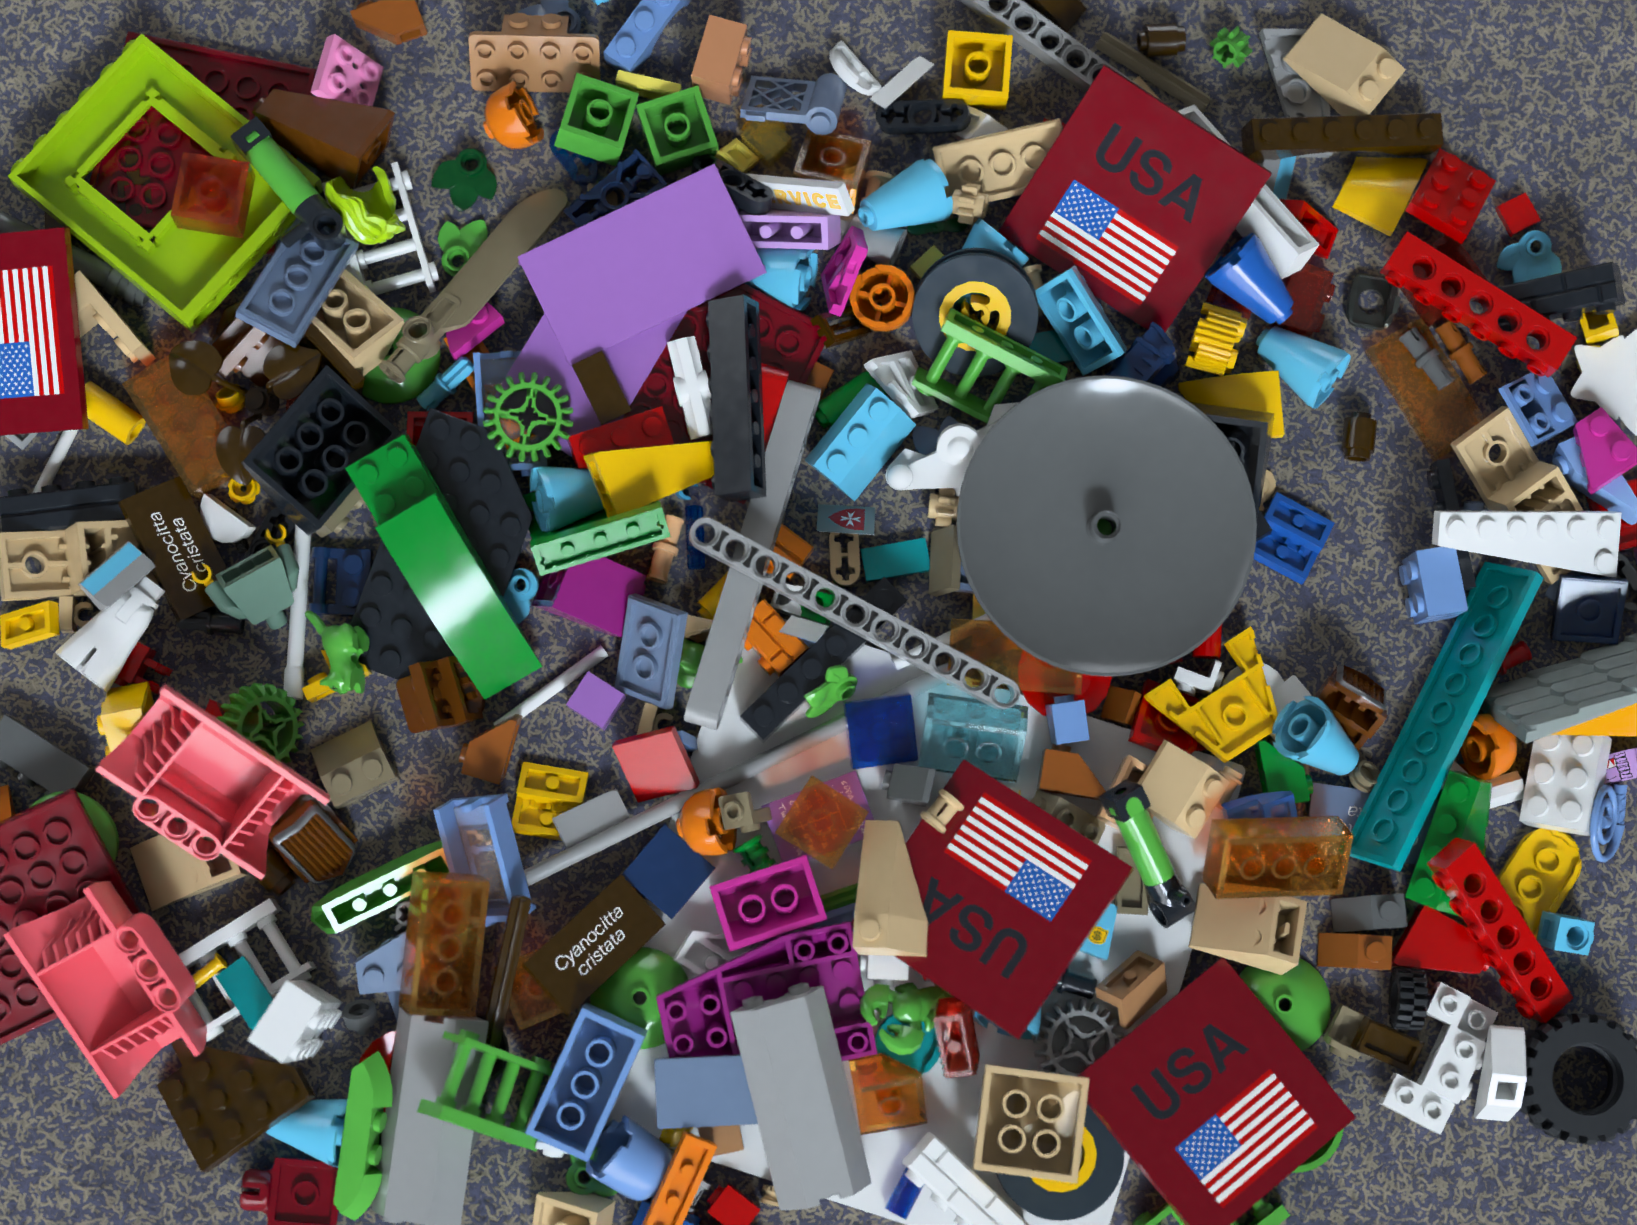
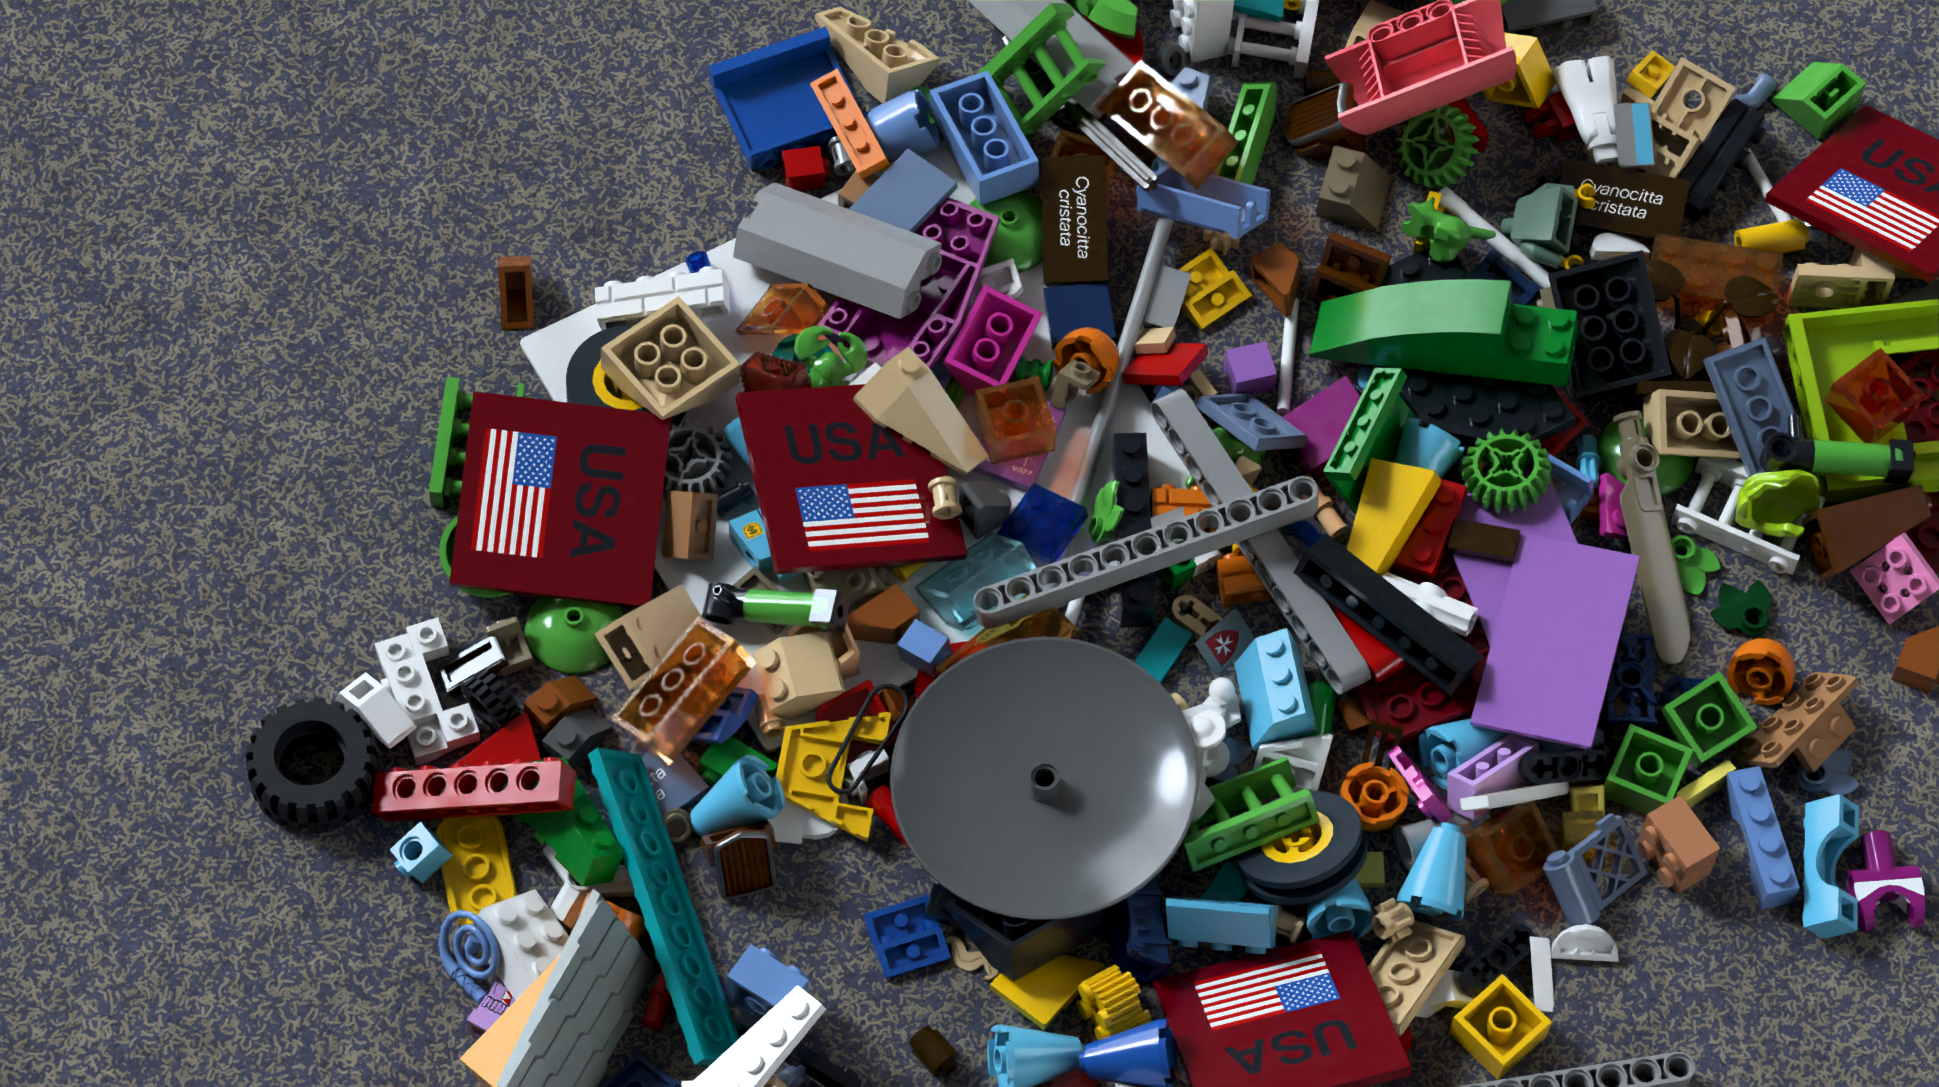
camera: 135 degrees right, 20 degrees down
(639, 792) = (1155, 340): none -> tan tile
(1180, 676) = (852, 730): none -> black piece

